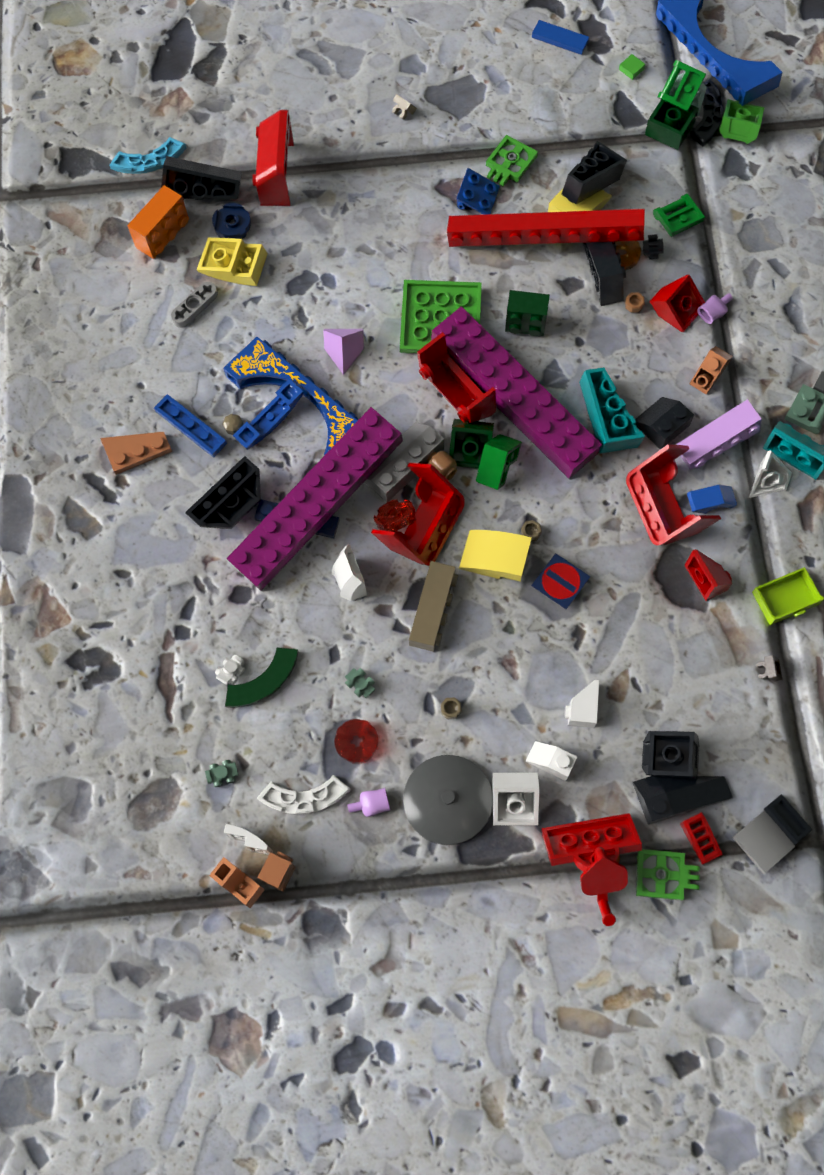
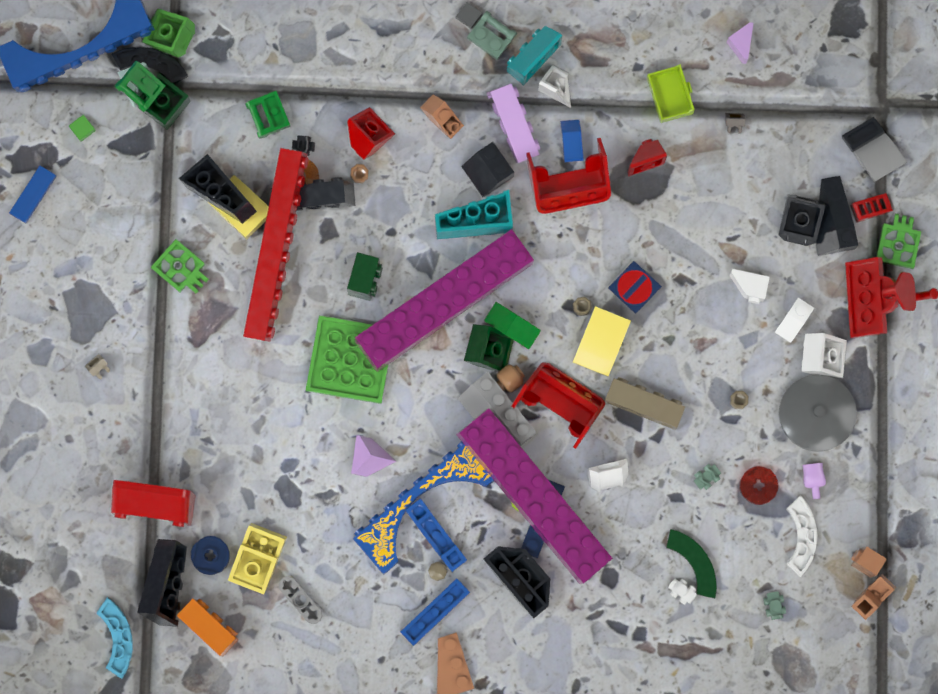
camera: 90 degrees left, 10 degrees up
(252, 842) = (842, 579): white slope -> none
(395, 515) = (564, 423): clear red plate -> none
(454, 383) = (436, 352): red windscreen -> none
(477, 192) = (214, 305): blue hinge -> none
(714, 308) = (376, 100): lavender piece -> none

